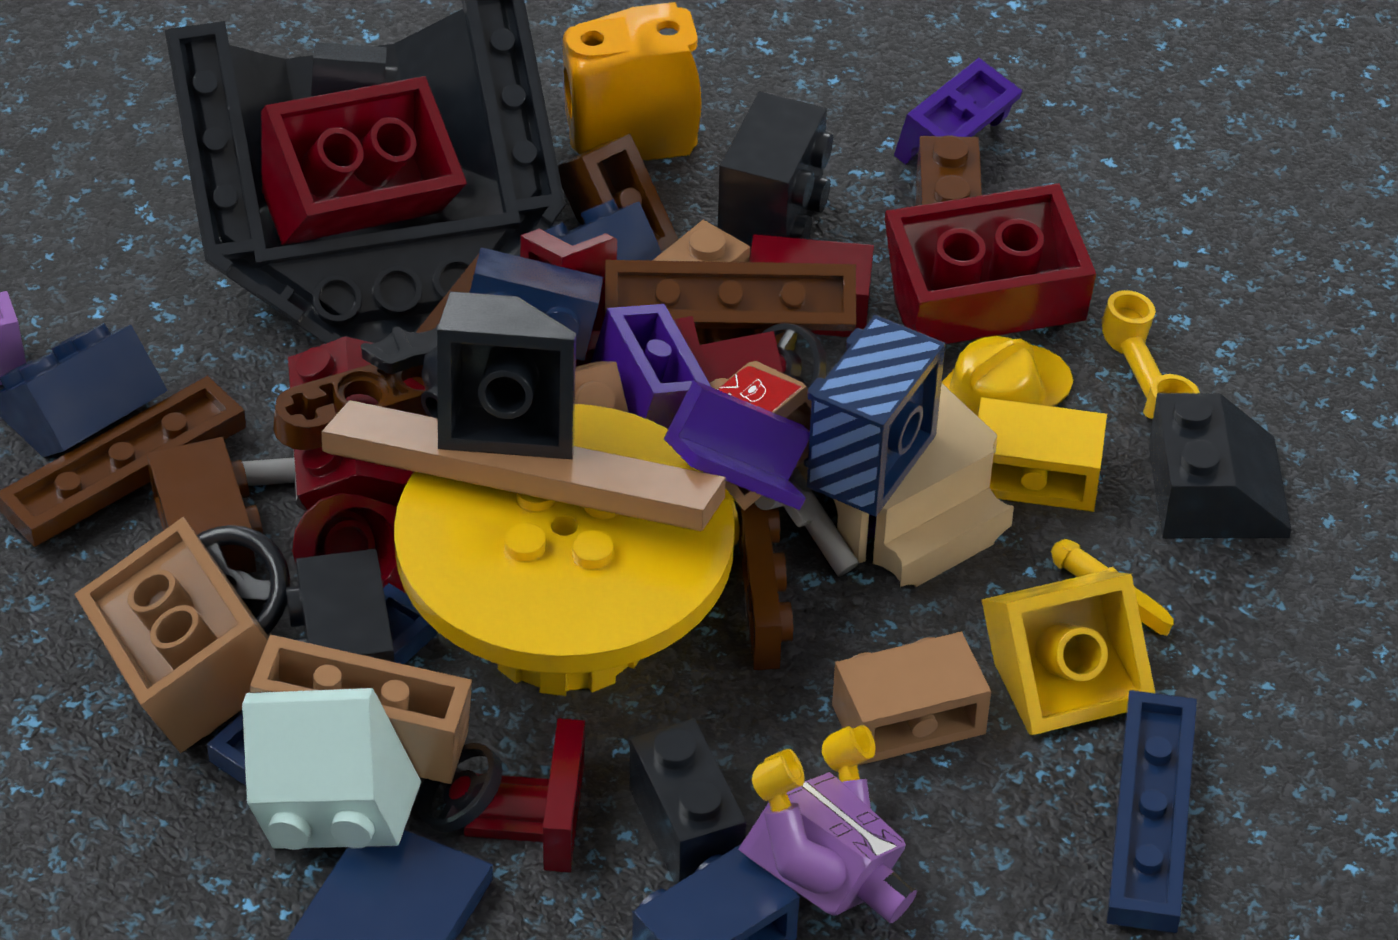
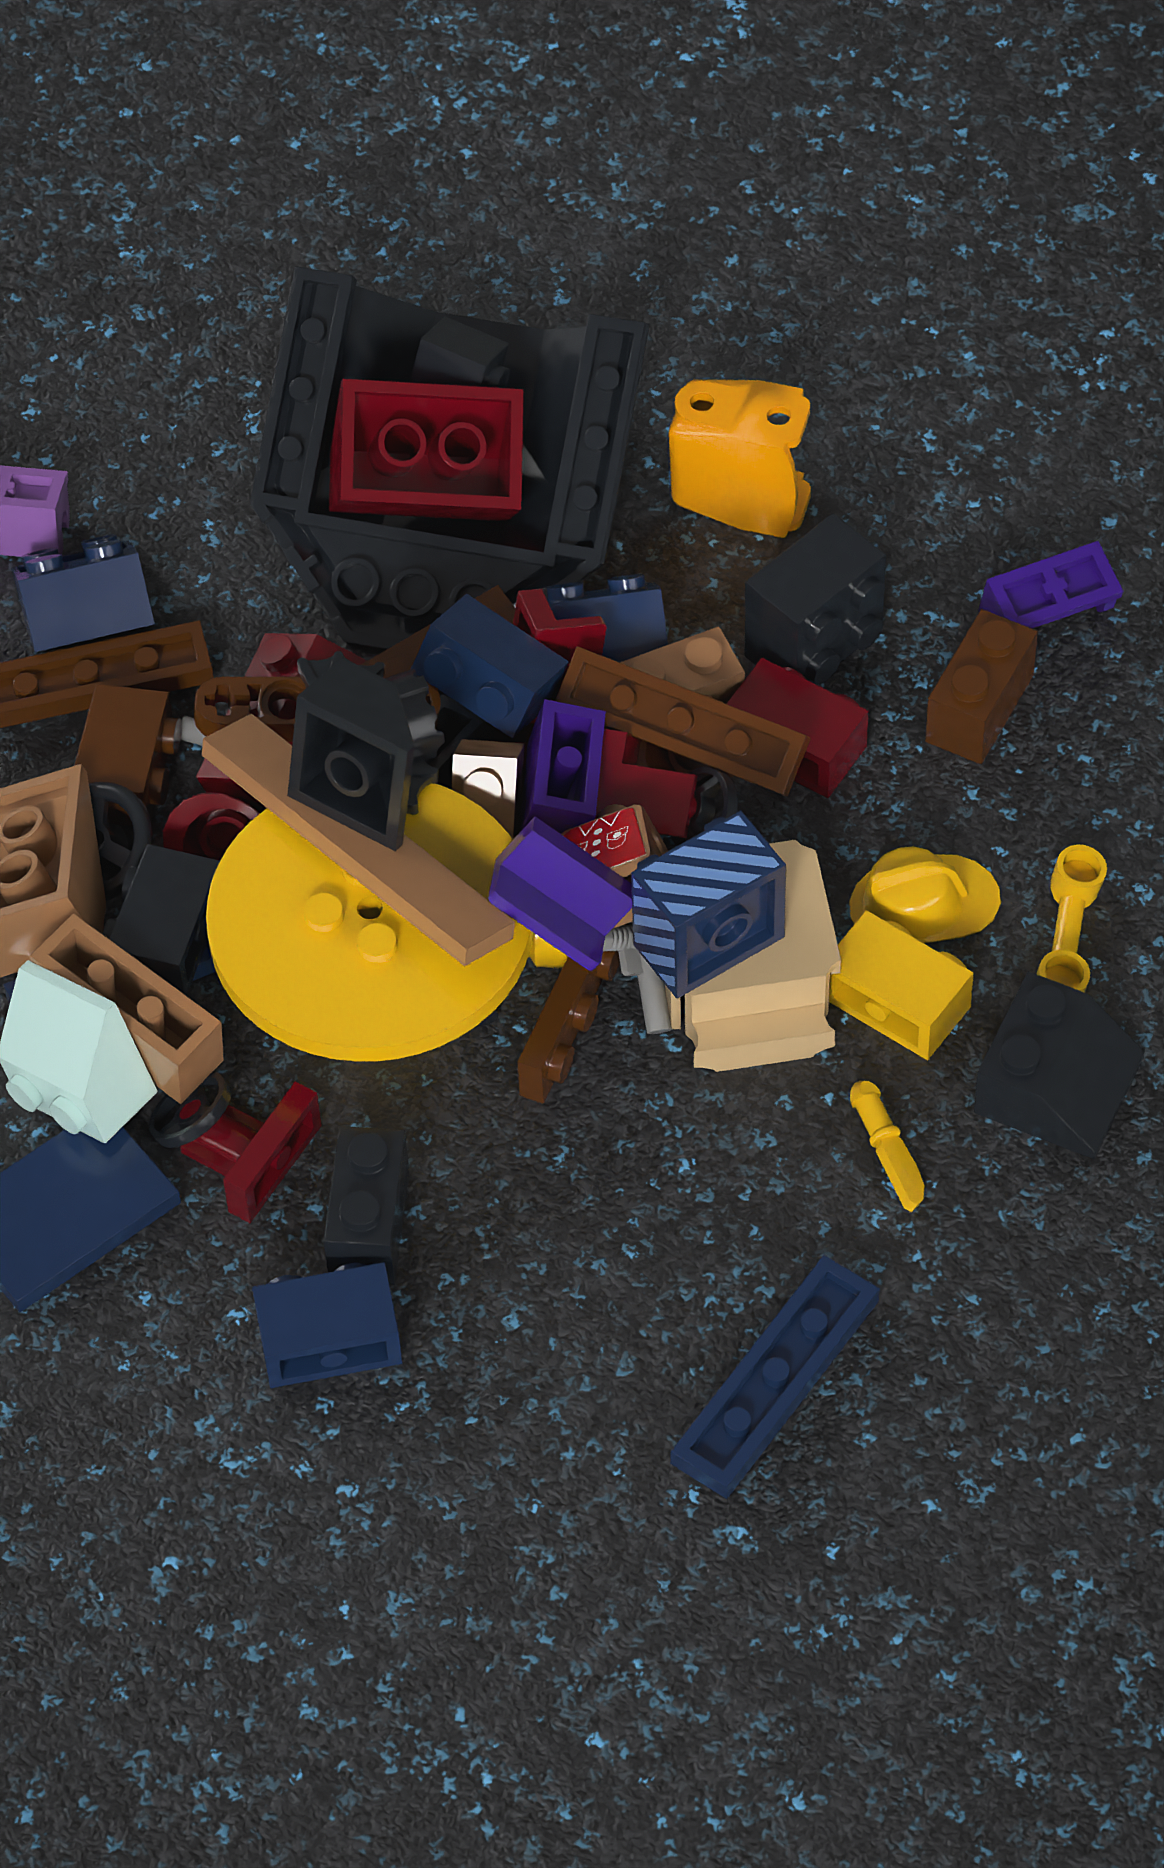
camera: 30 degrees right, 10 degrees up
(615, 173) = (671, 555): reddish brown slope -> none
(823, 831) = (458, 1287): medium lavender torso -> none
(913, 695) = (625, 1181): medium nougat brick -> none
(989, 264) = (964, 771): dark red slope -> none
(1069, 649) = (797, 1192): yellow slope -> none

